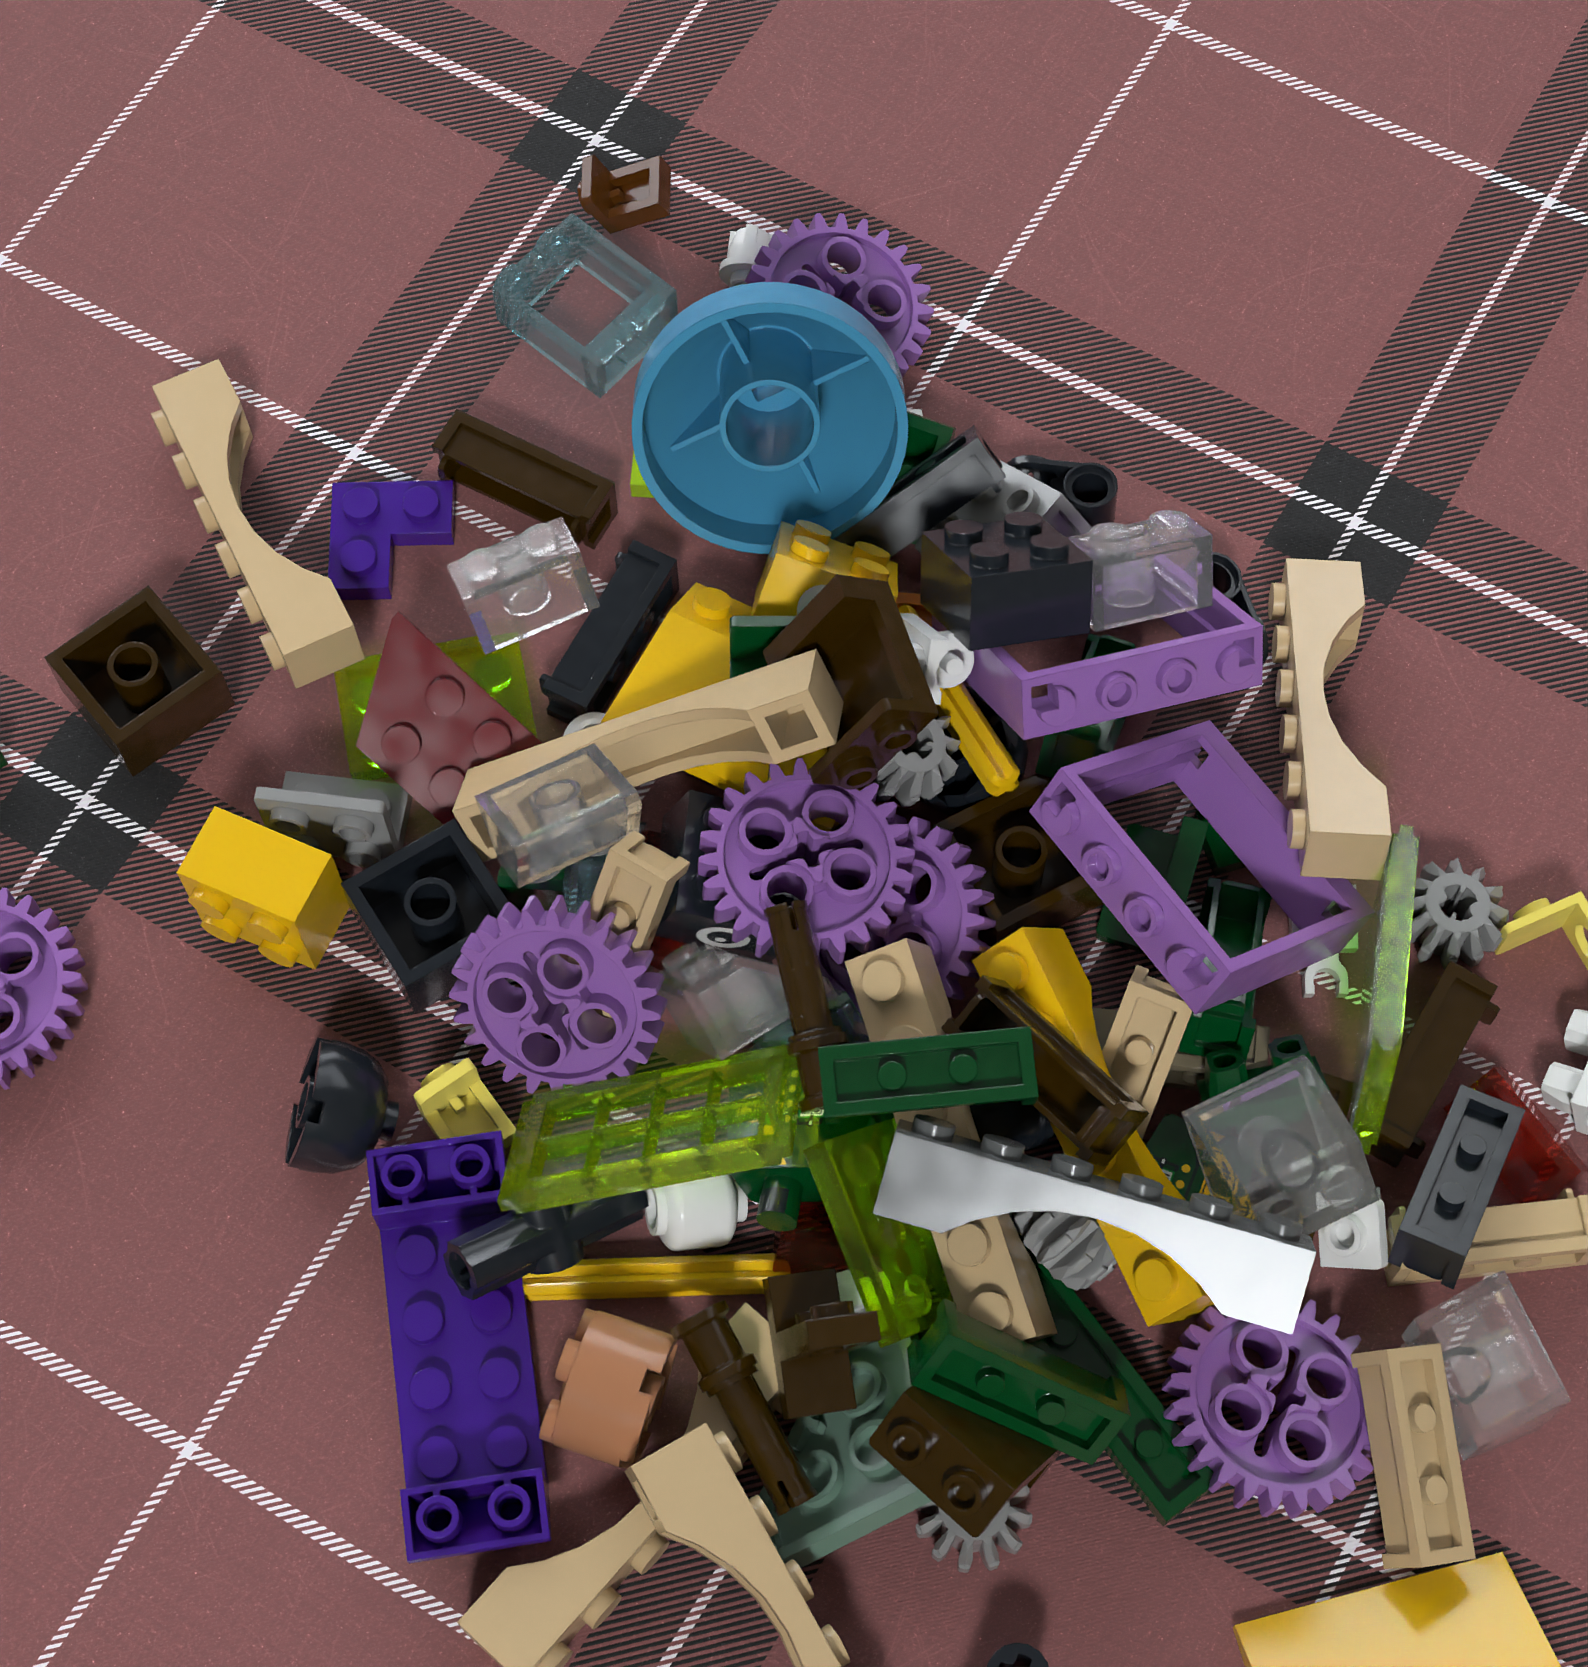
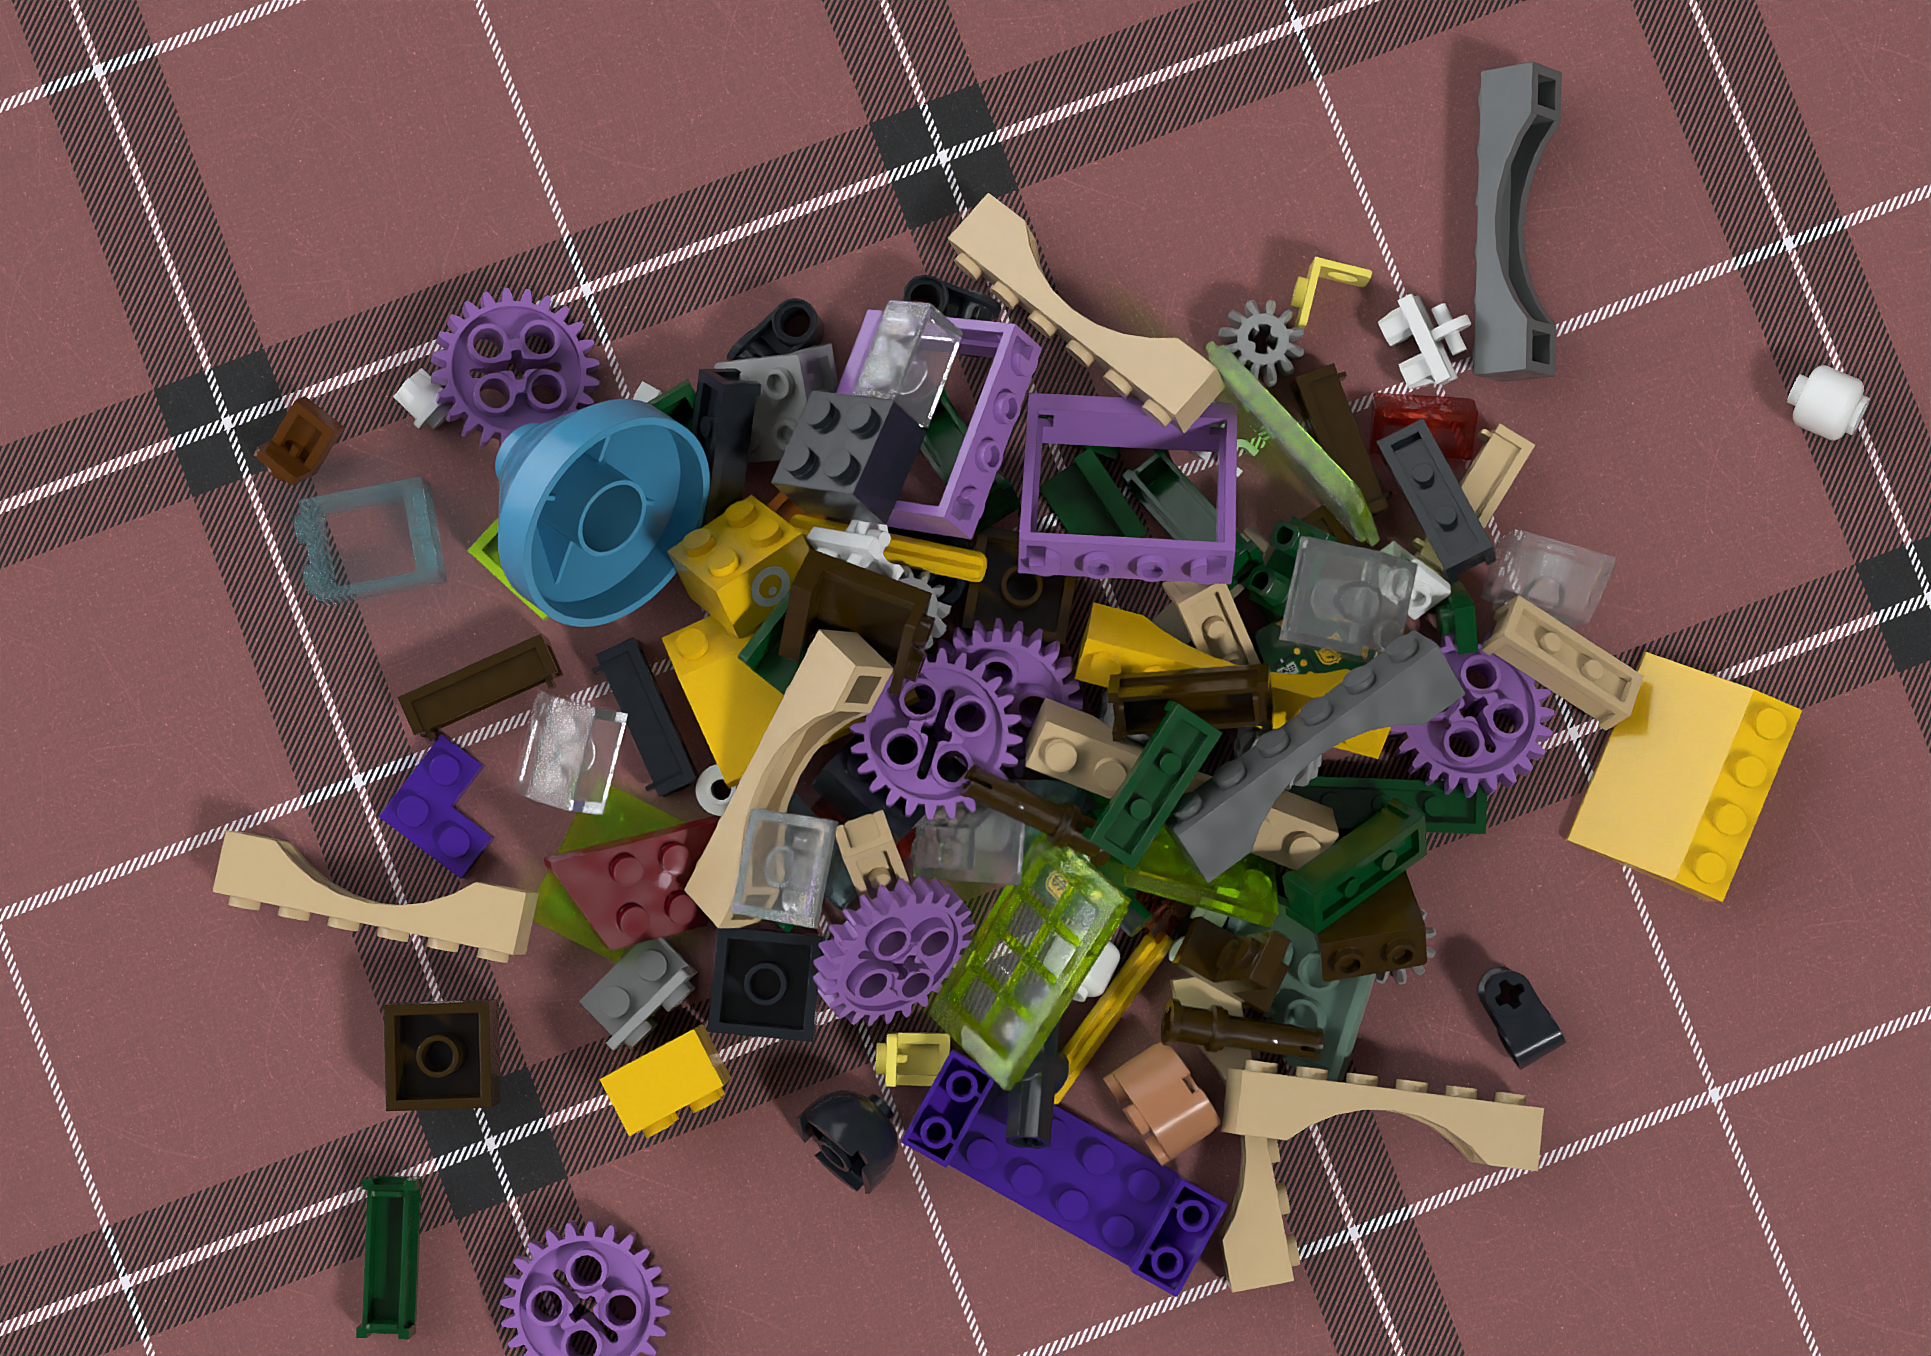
camera: 55 degrees left, 20 degrees up
(1359, 1300) = (1457, 619): none -> dark green plate

